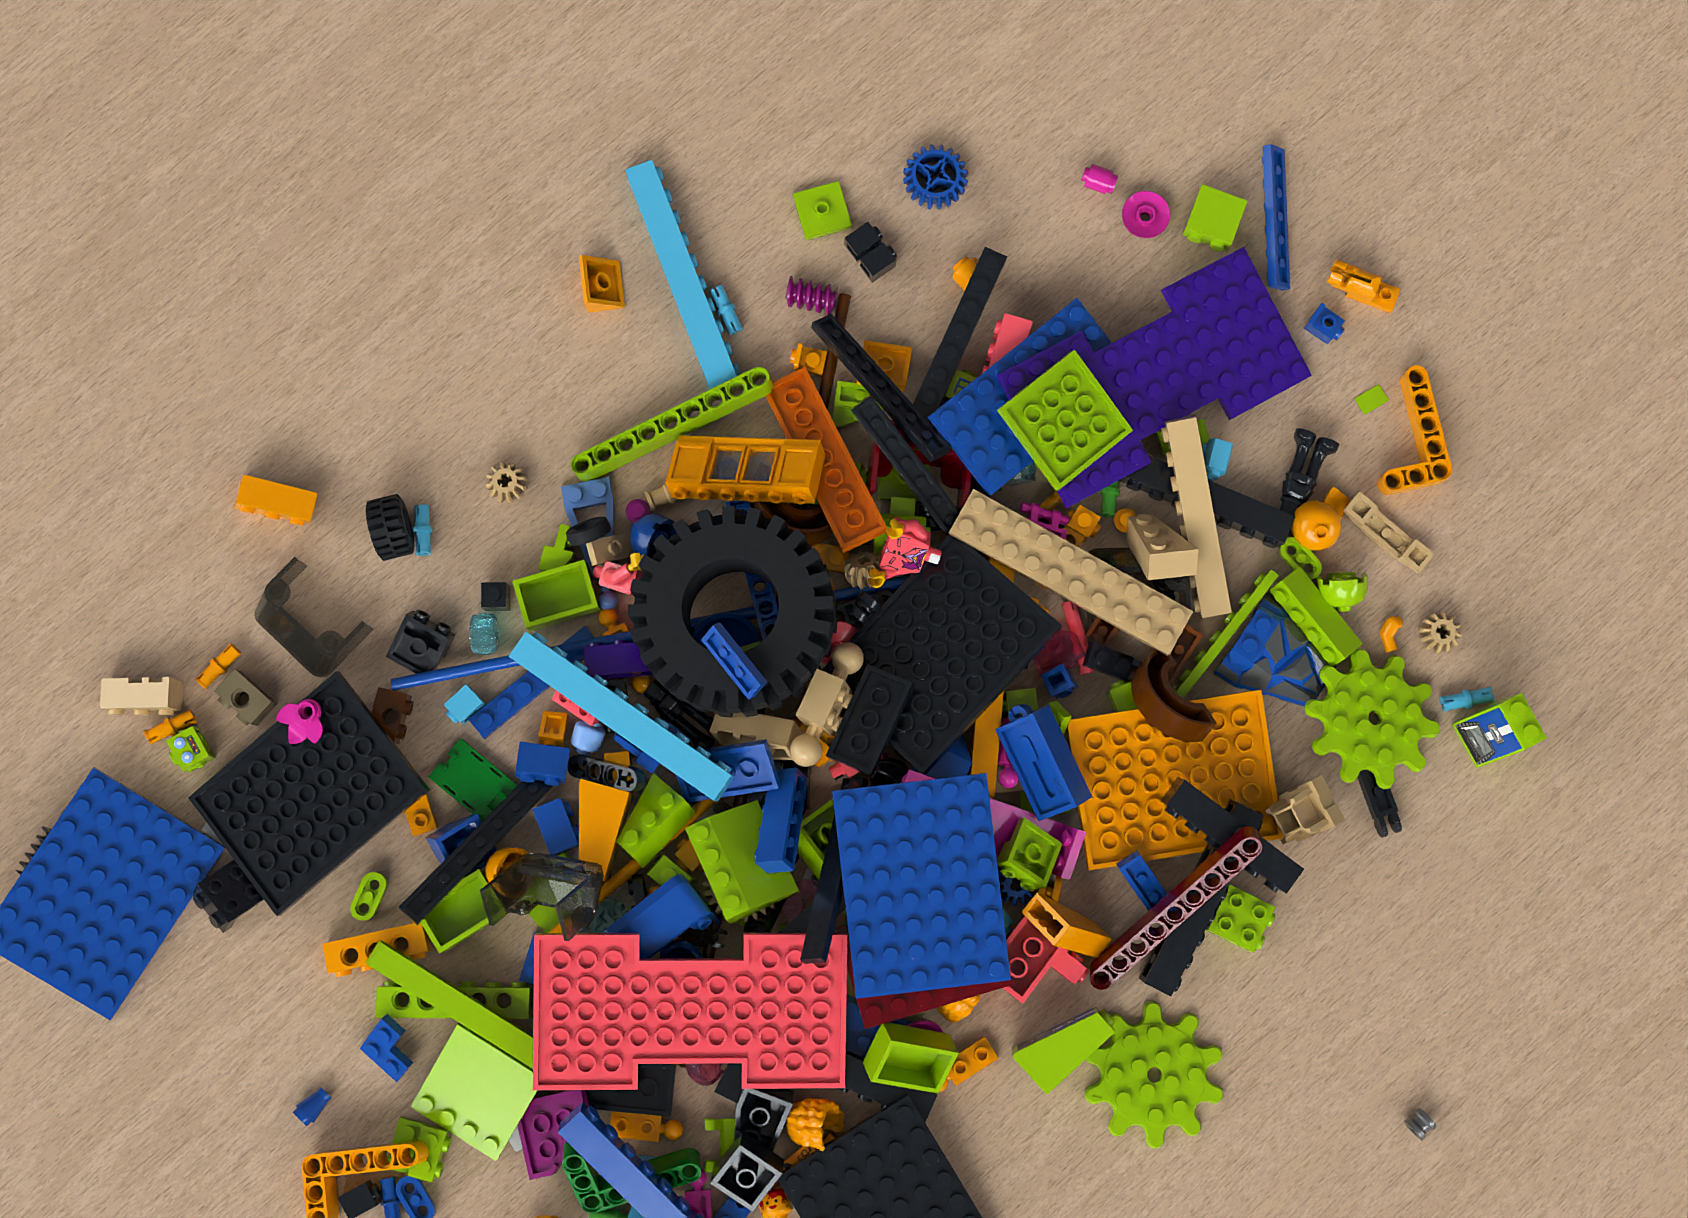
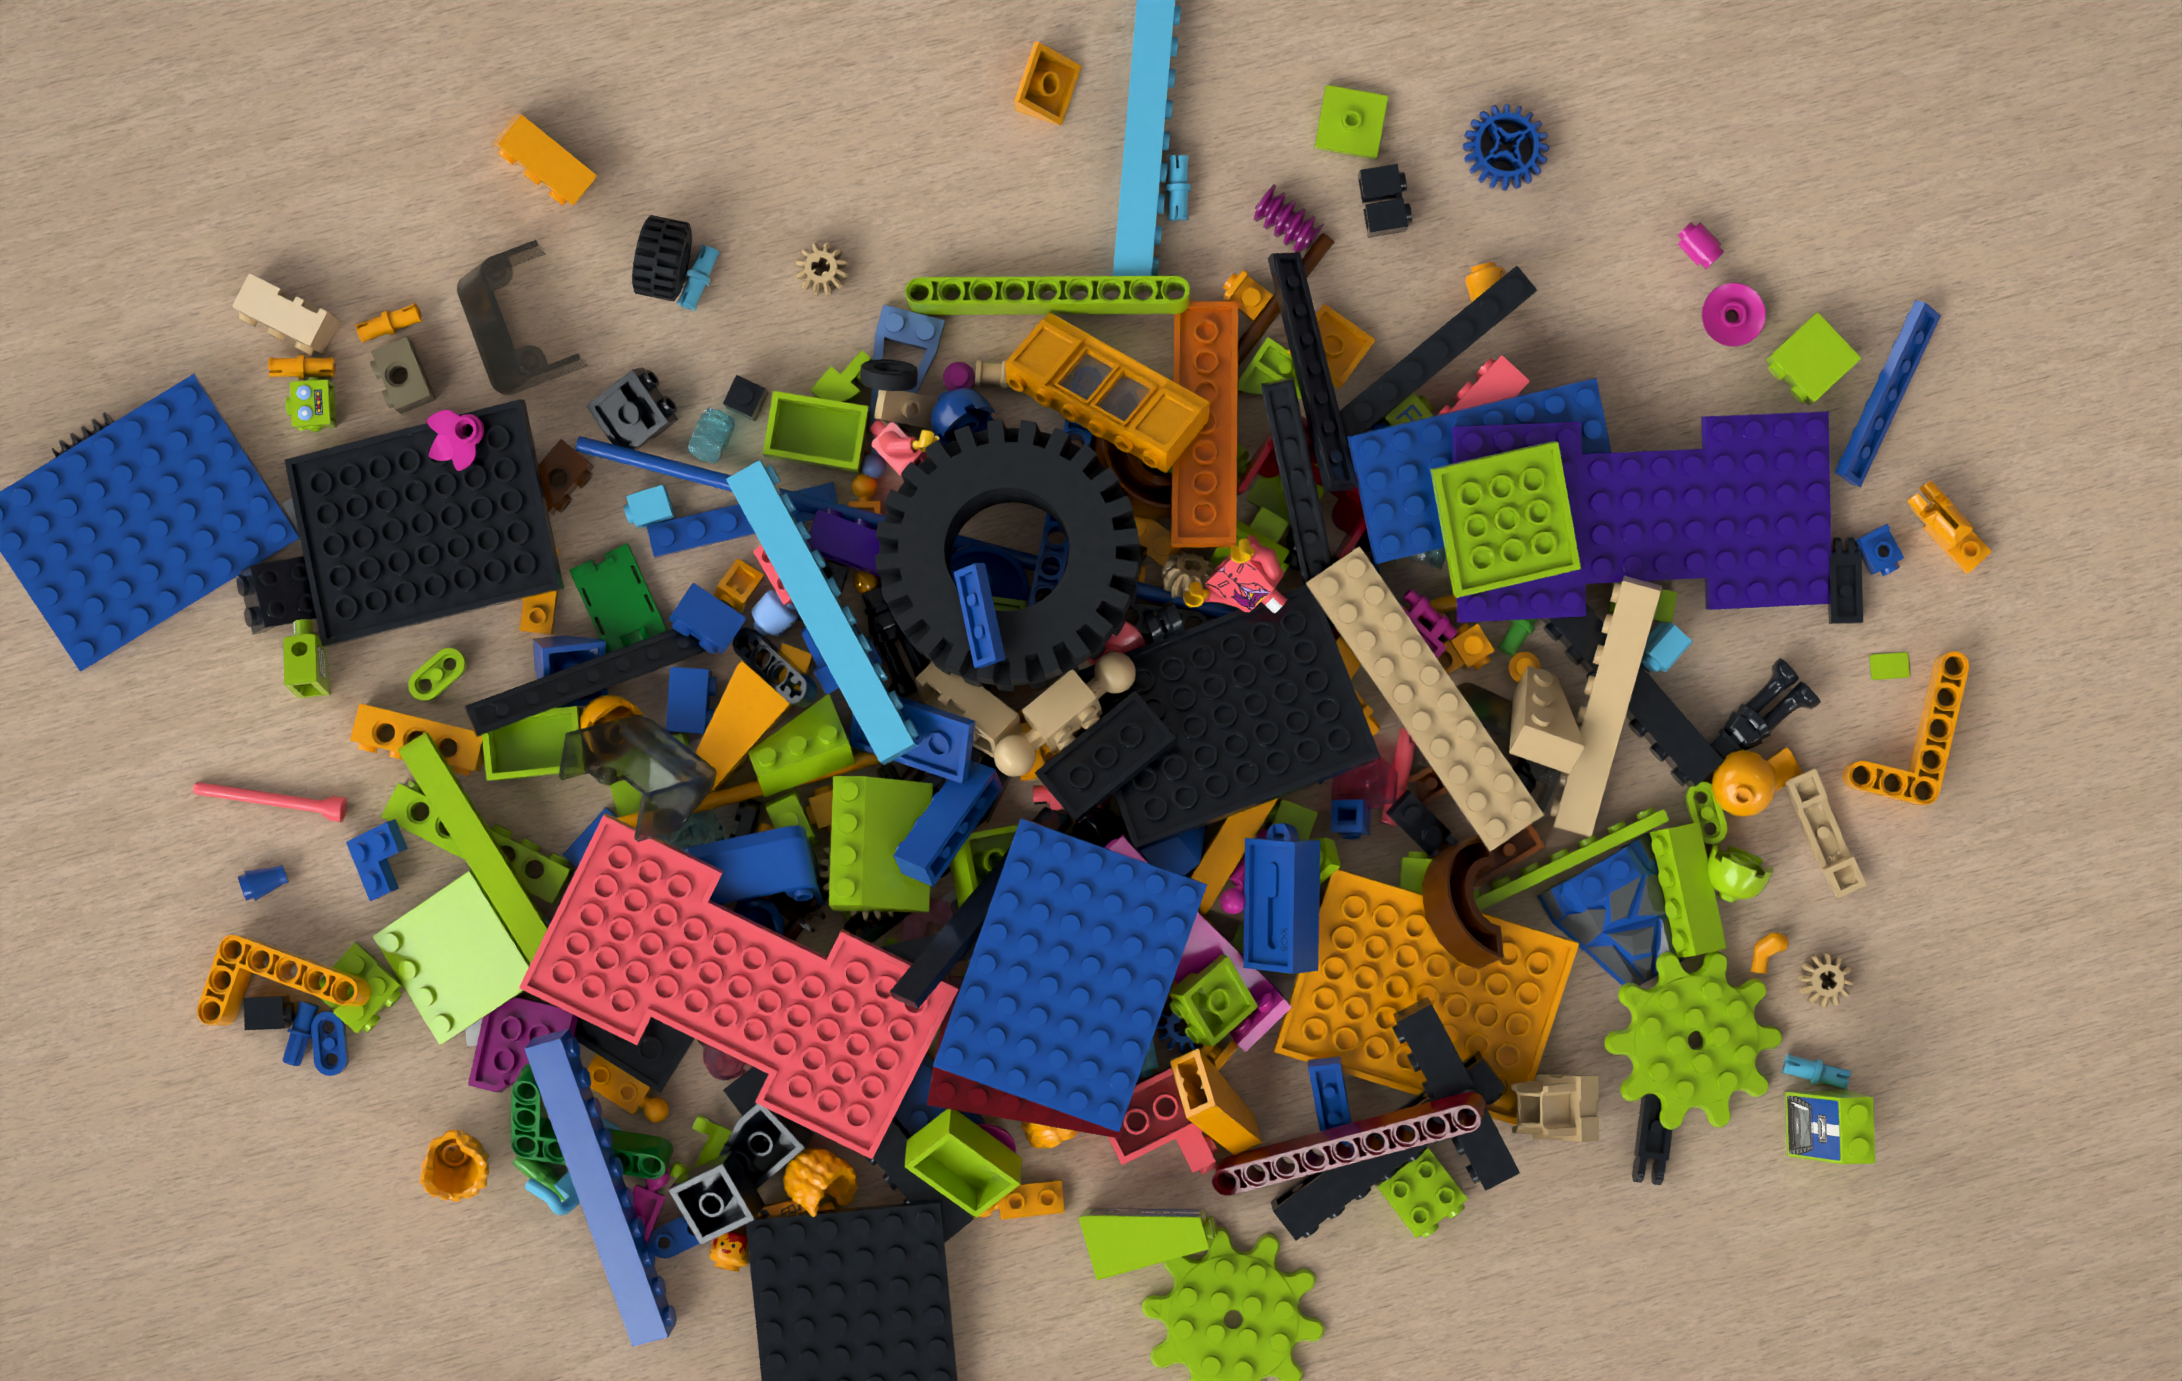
camera: 30 degrees right, 5 degrees up
(270, 933) = (305, 662): none -> lime torso
(339, 1028) = (332, 808): none -> coral piece
(1314, 357) = (1845, 583): none -> black hinge

